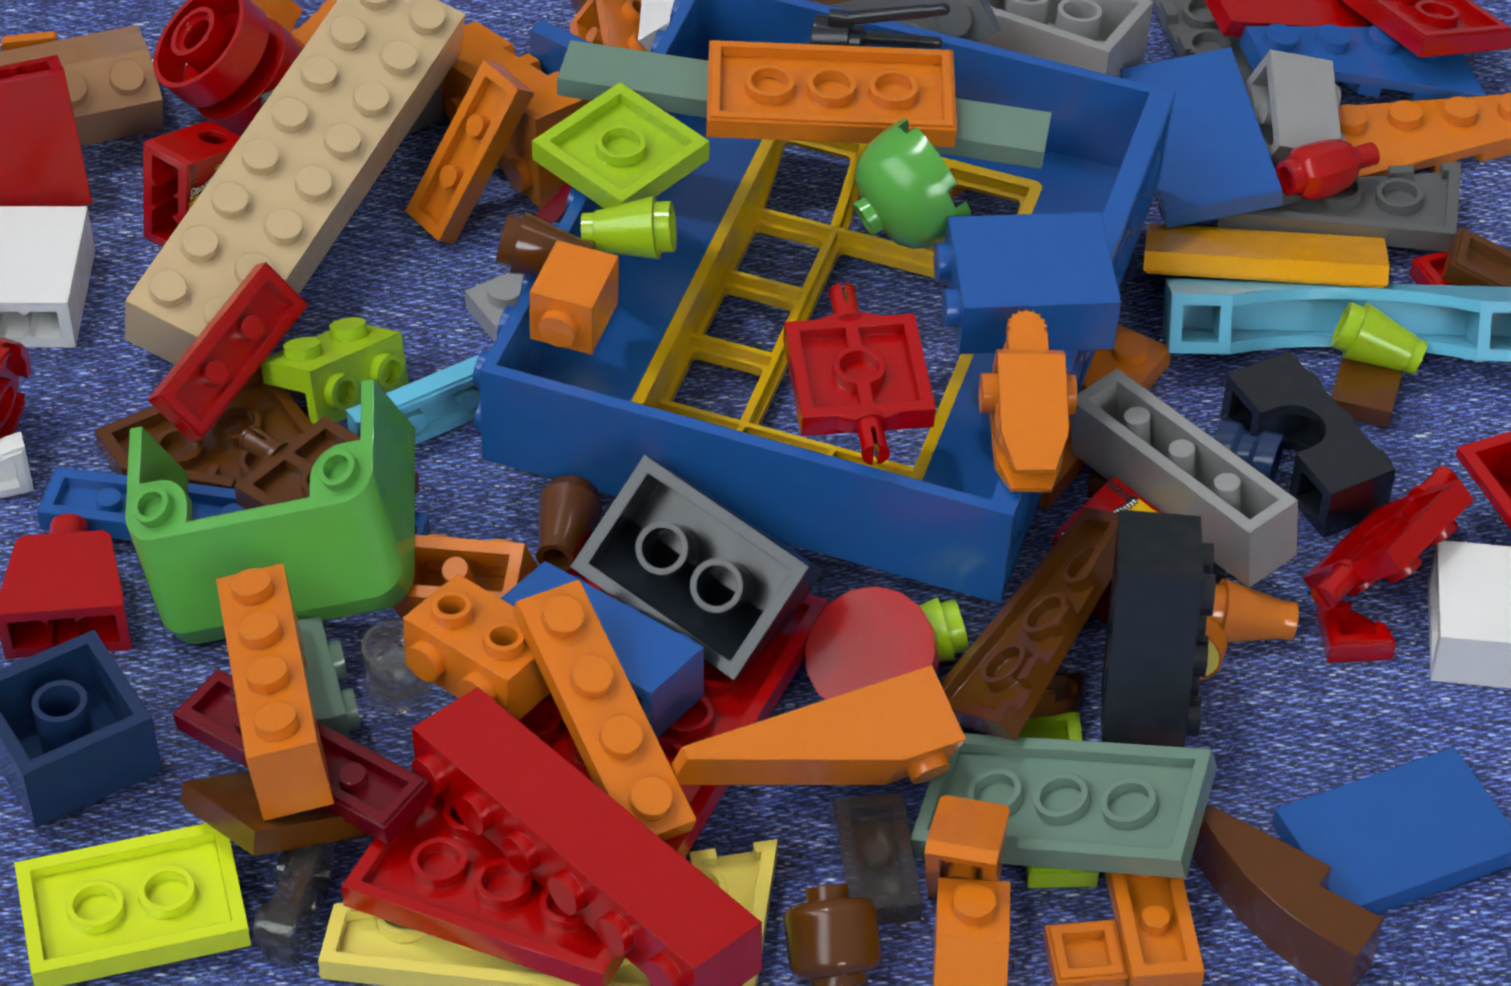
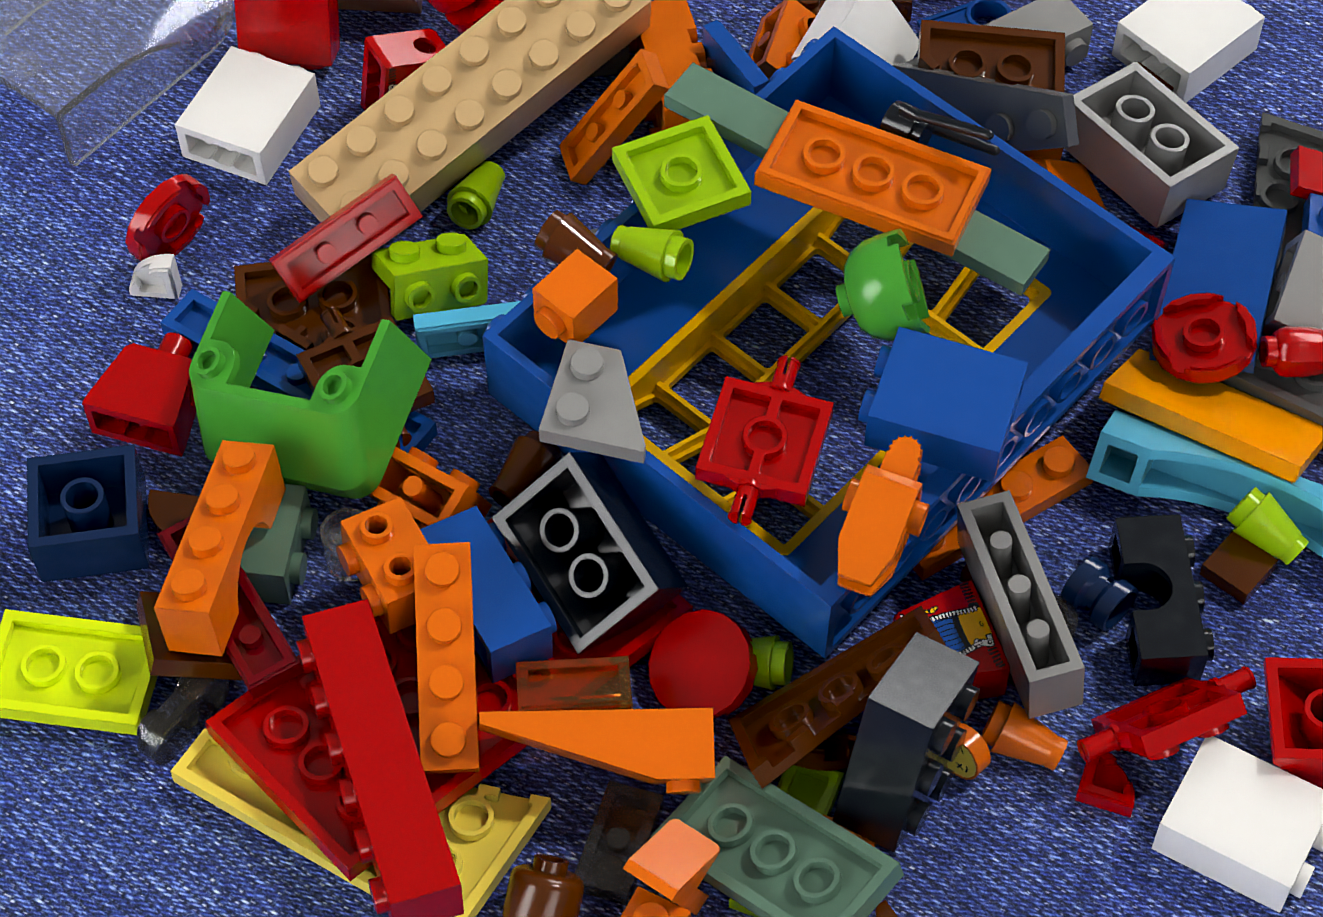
camera: 25 degrees right, 10 degrees up
(161, 701) = (169, 507): none -> reddish brown tile
(341, 284) = (475, 197): none -> lime cone
(650, 398) = (593, 404): none -> light grey wing
(744, 703) = (574, 684): none -> clear orange tile
(1219, 183) = (1204, 338): none -> red tile

